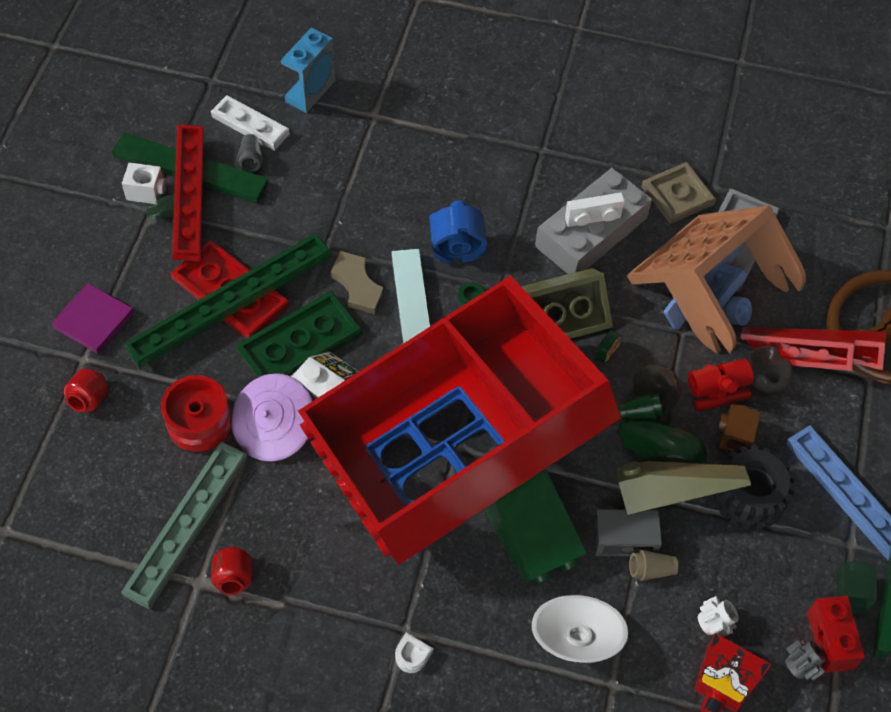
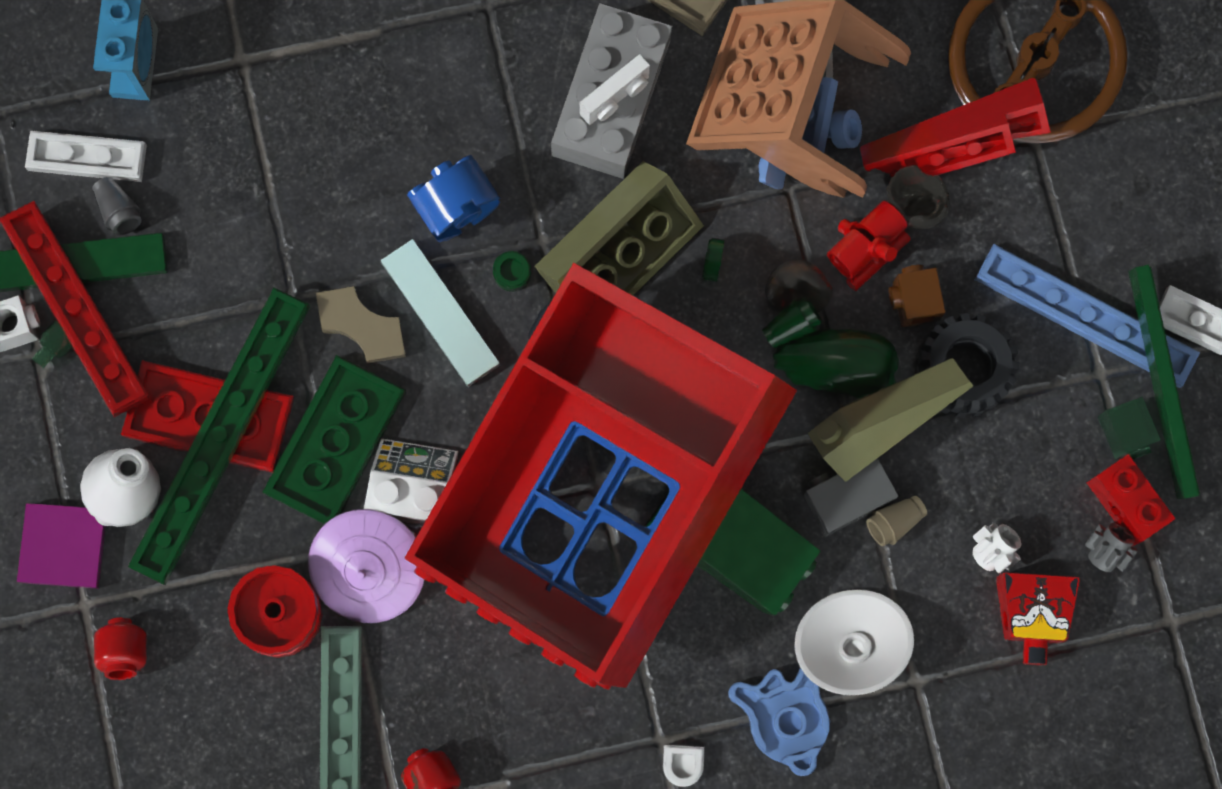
camera: 30 degrees left, 20 degrees up
(150, 293) = (120, 487): none -> white cone
(503, 660) = (785, 718): none -> medium blue tile

